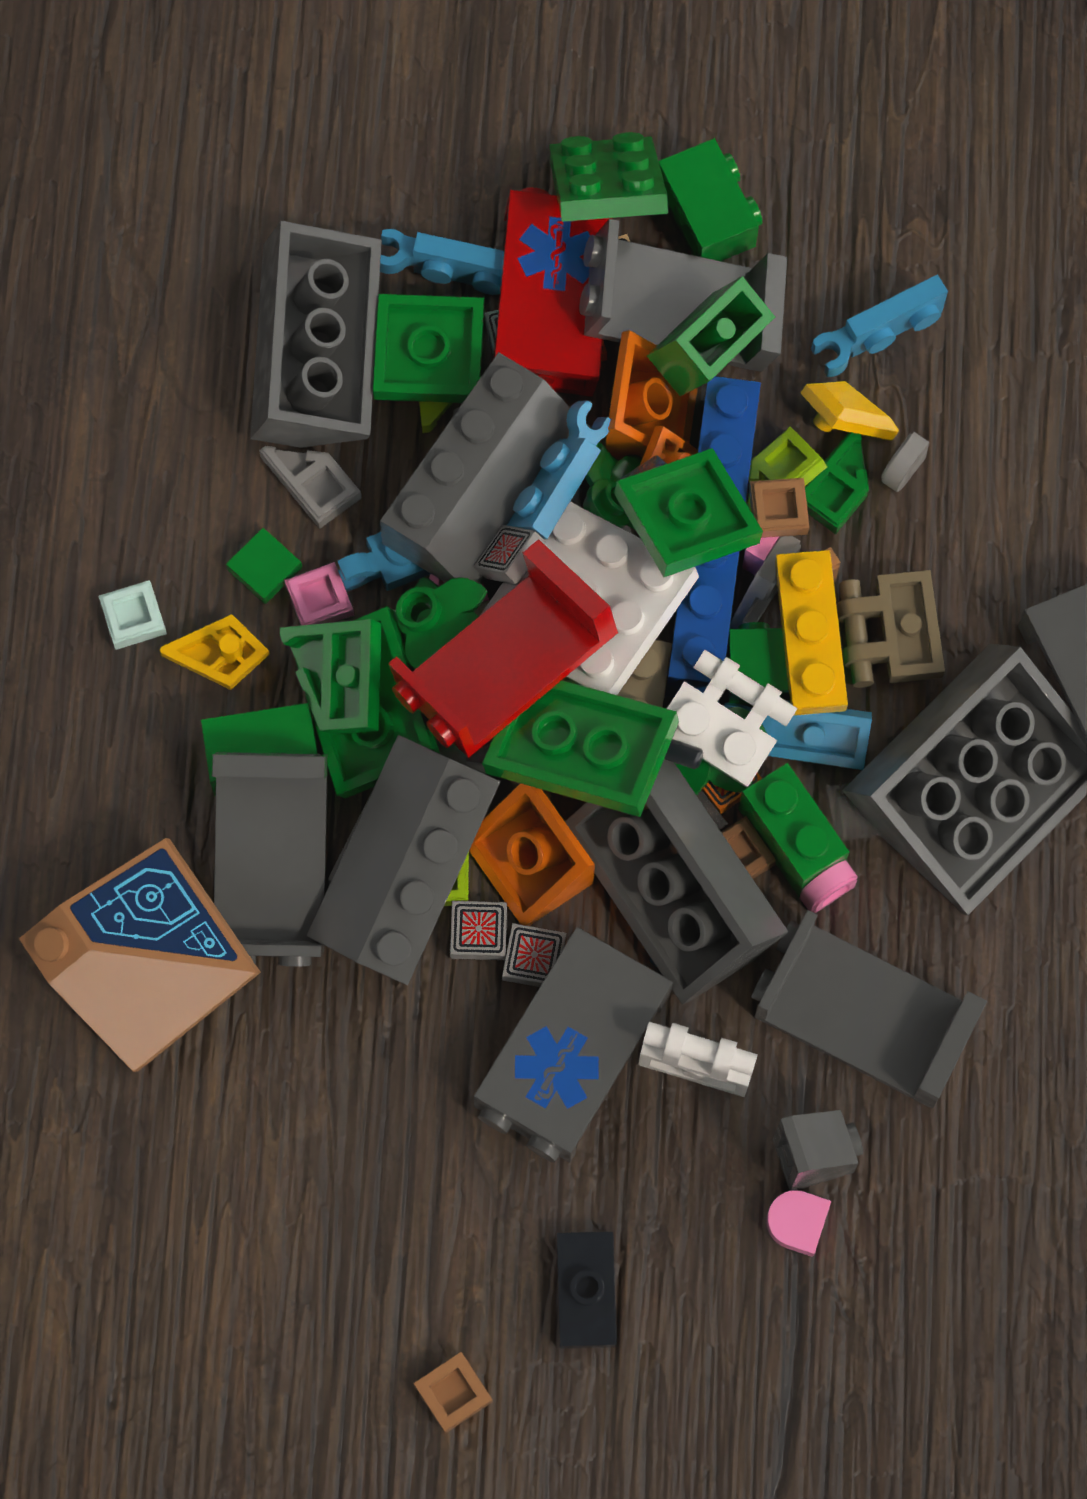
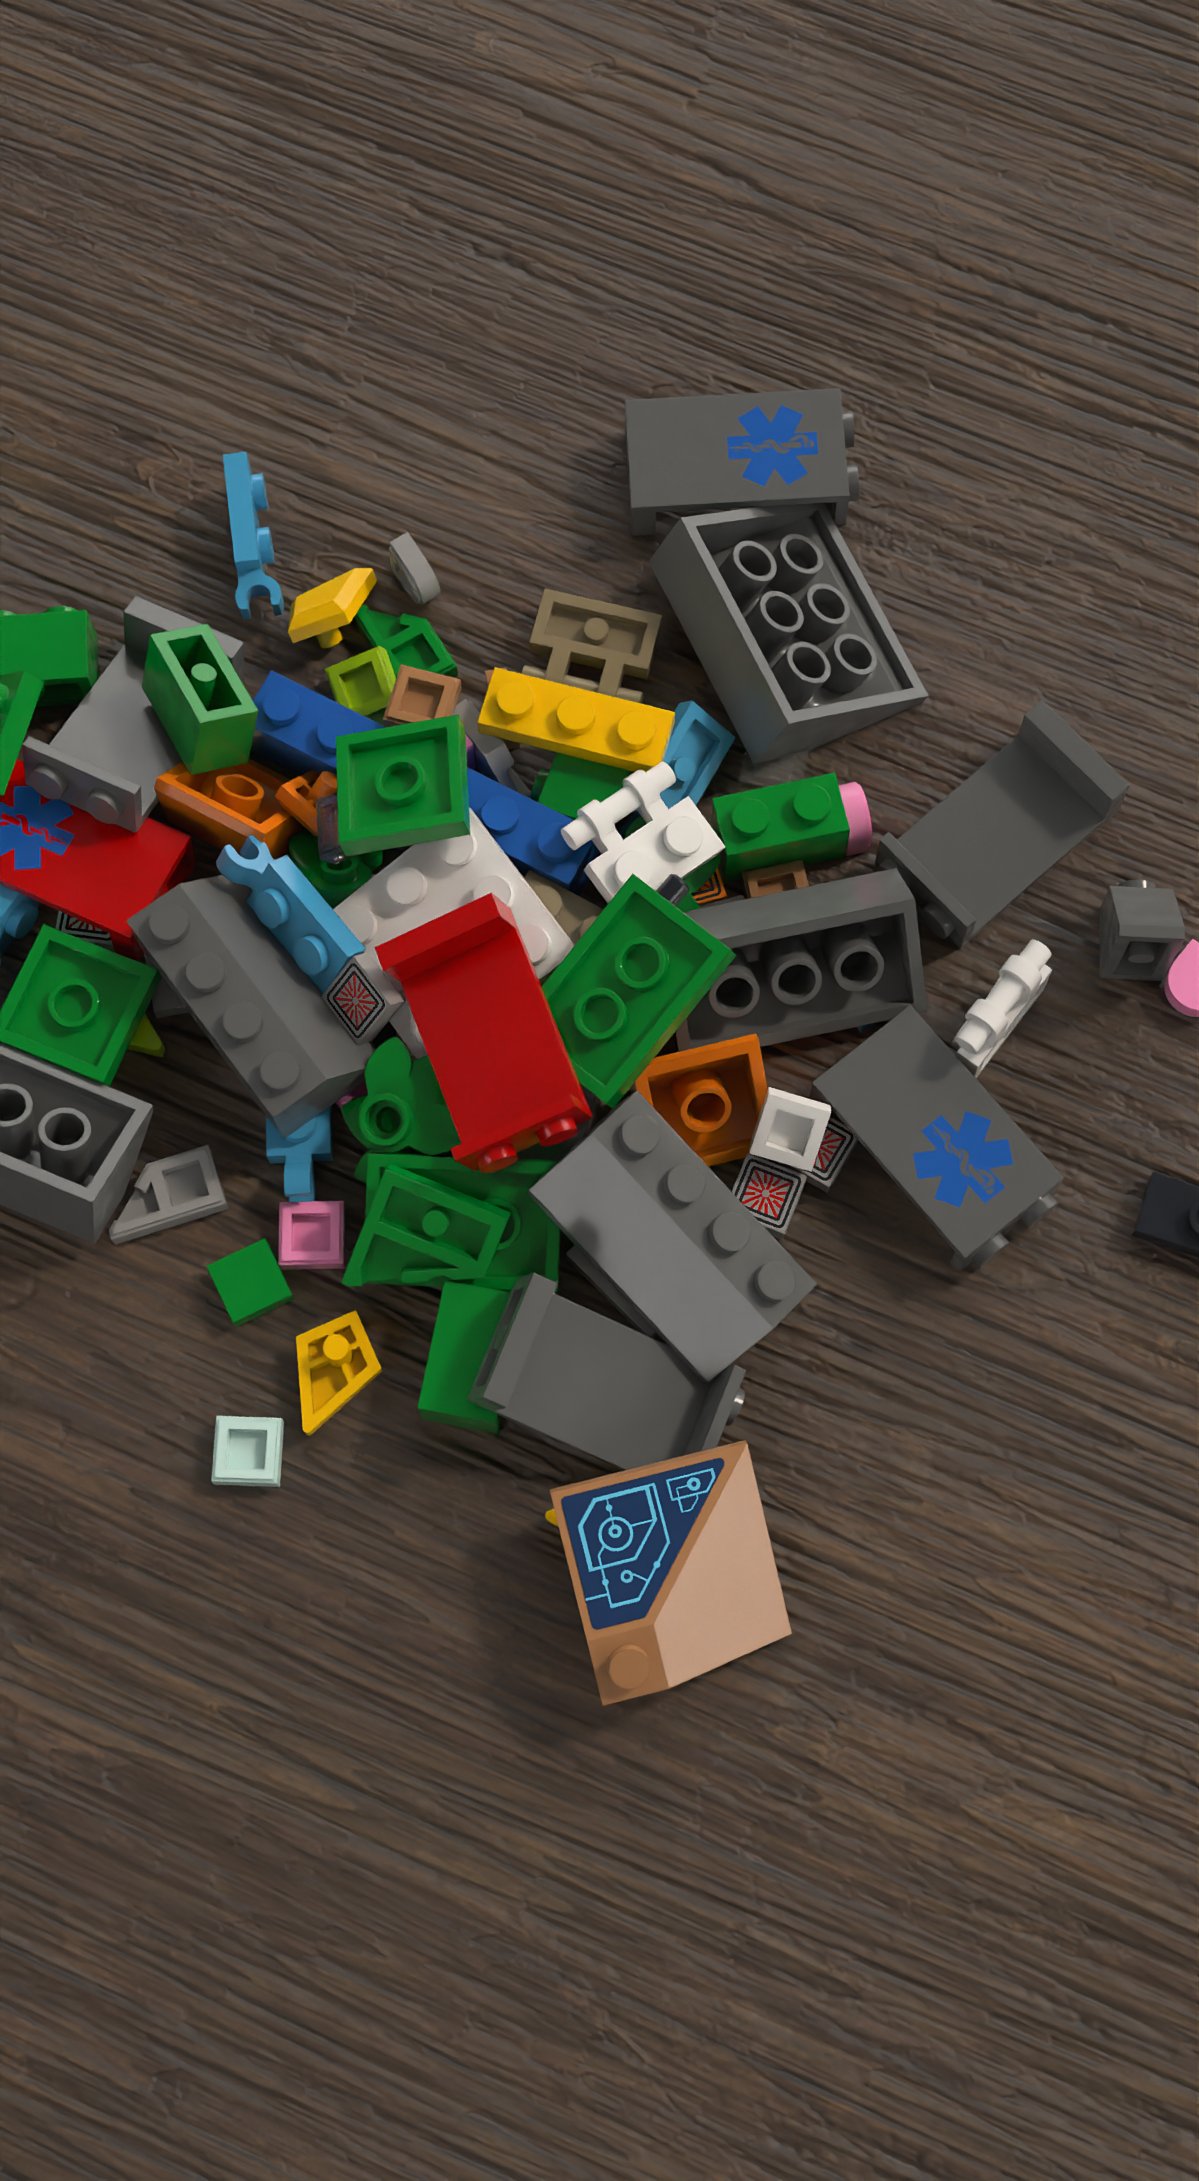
camera: 65 degrees left, 0 degrees up
(532, 923) = (790, 1129): none -> white plate

